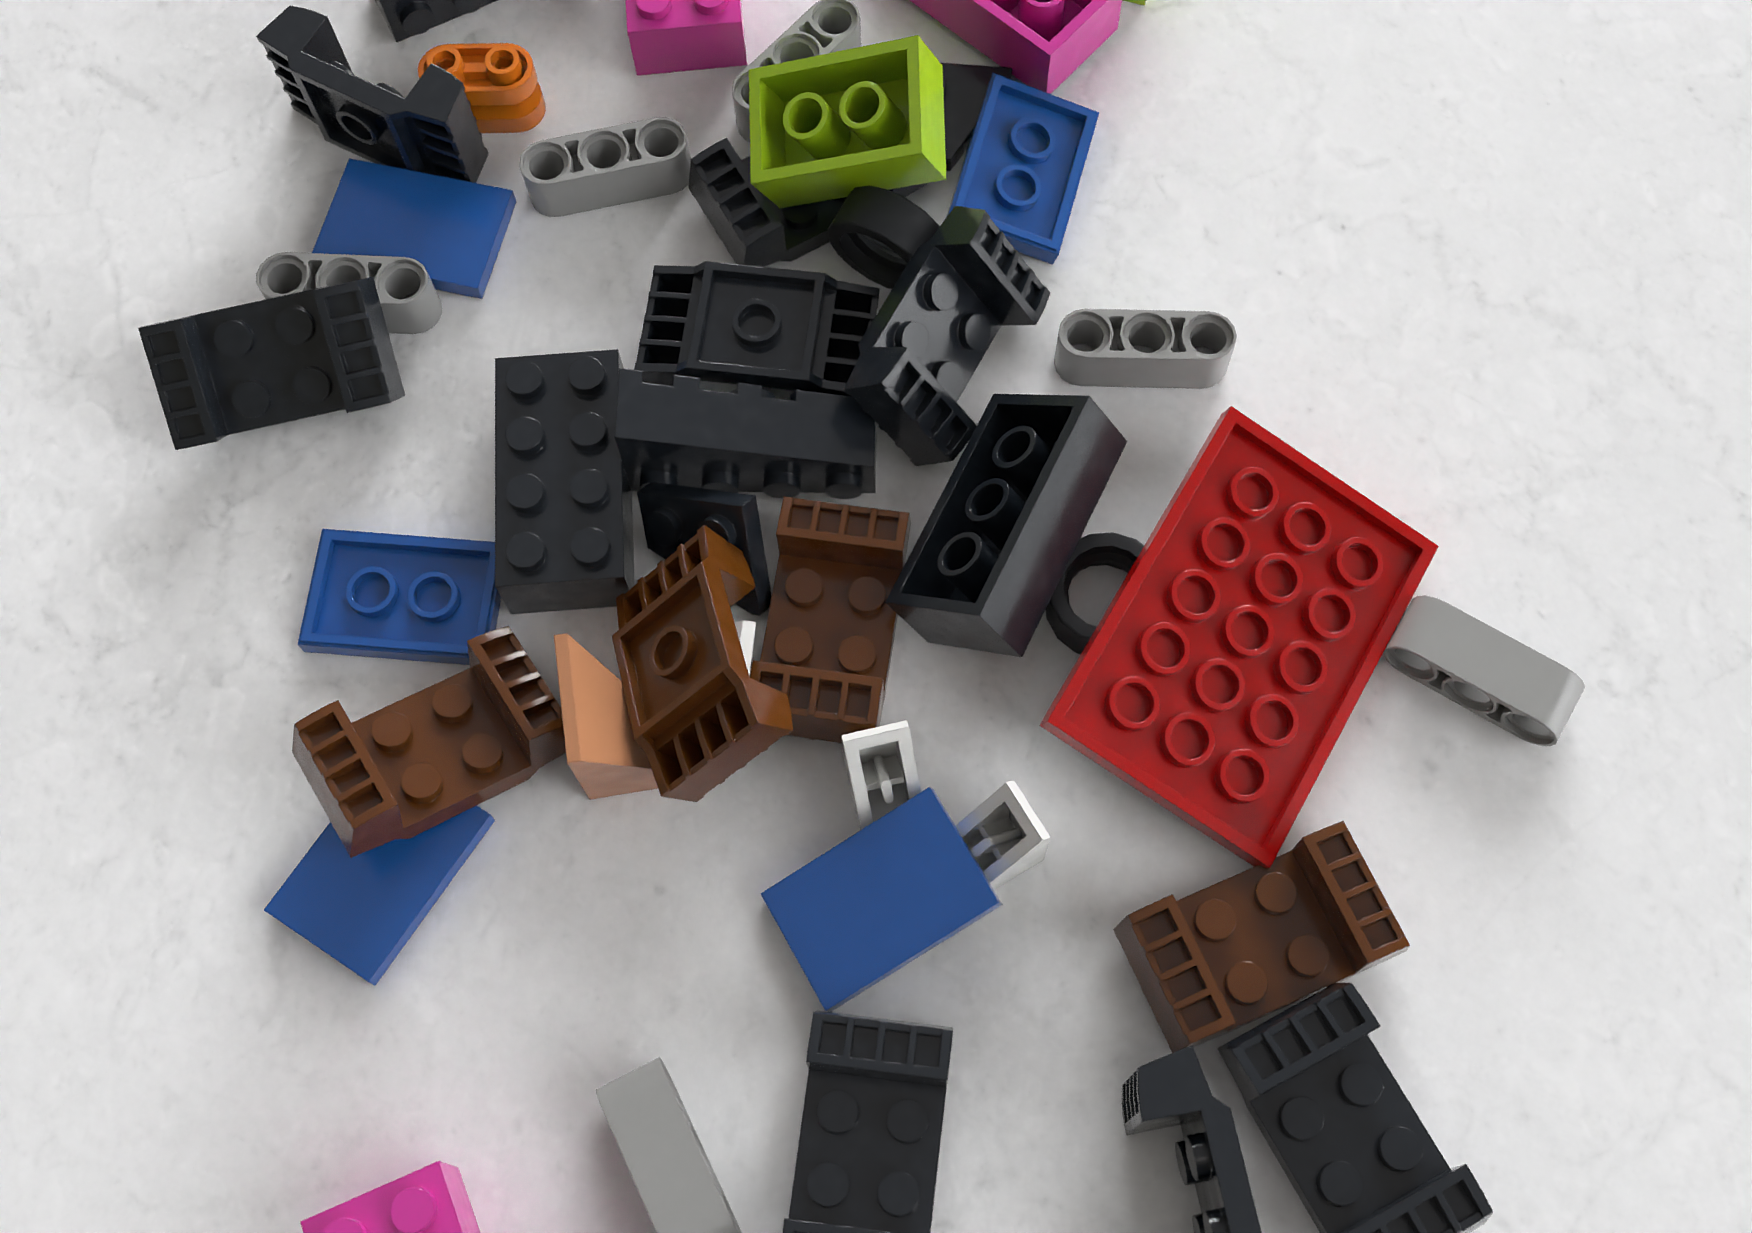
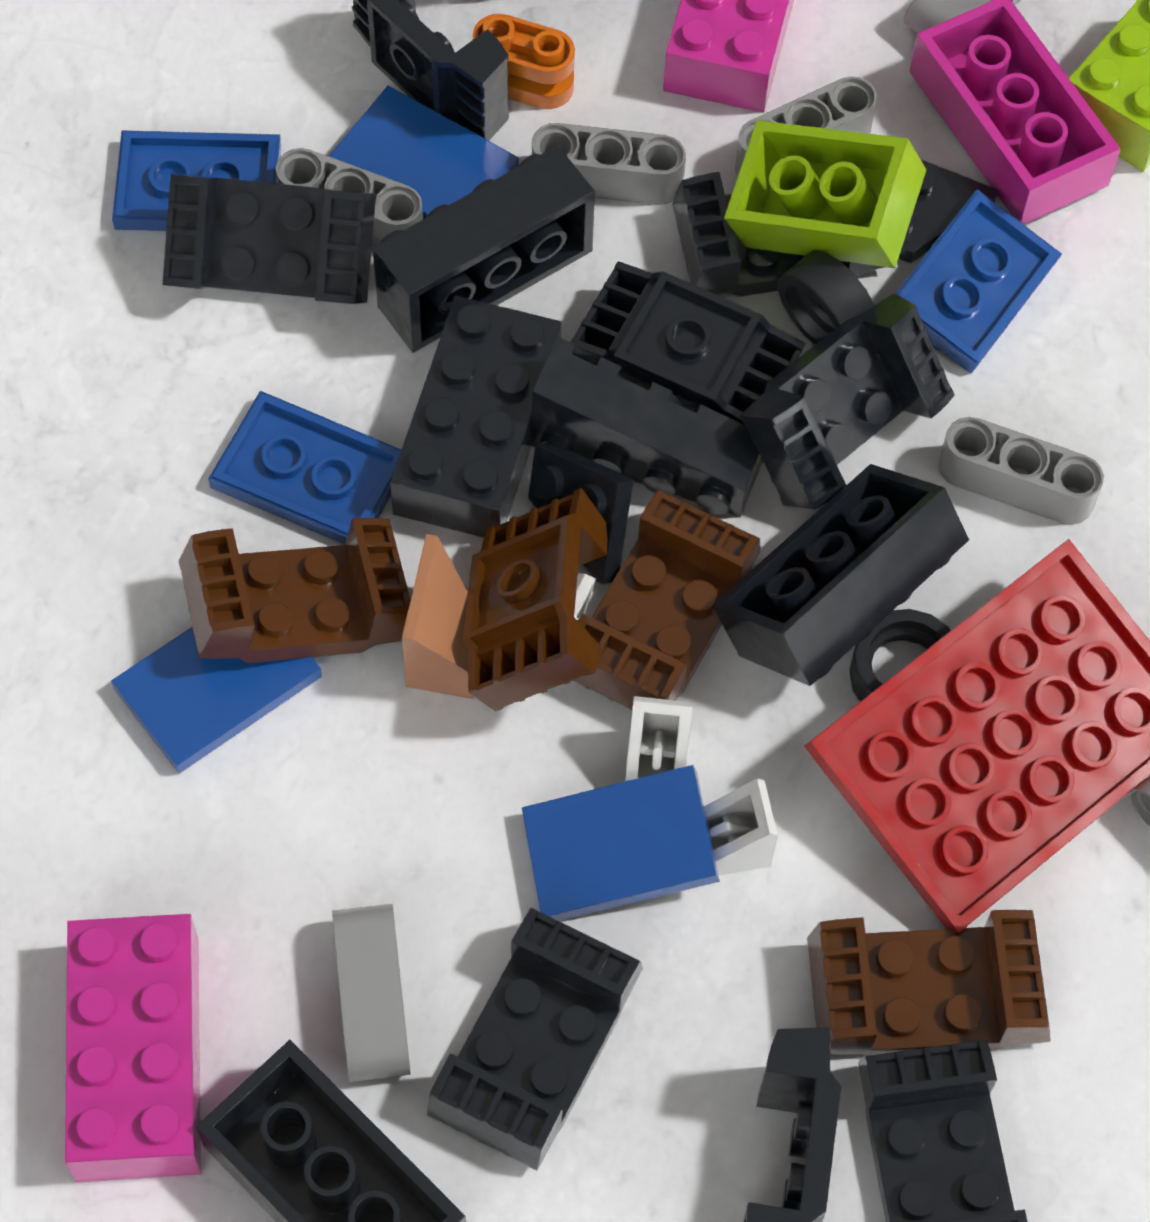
camera: 15 degrees right, 5 degrees down
(118, 312) = (151, 156): none -> blue tile
(507, 293) = (485, 245): none -> black brick

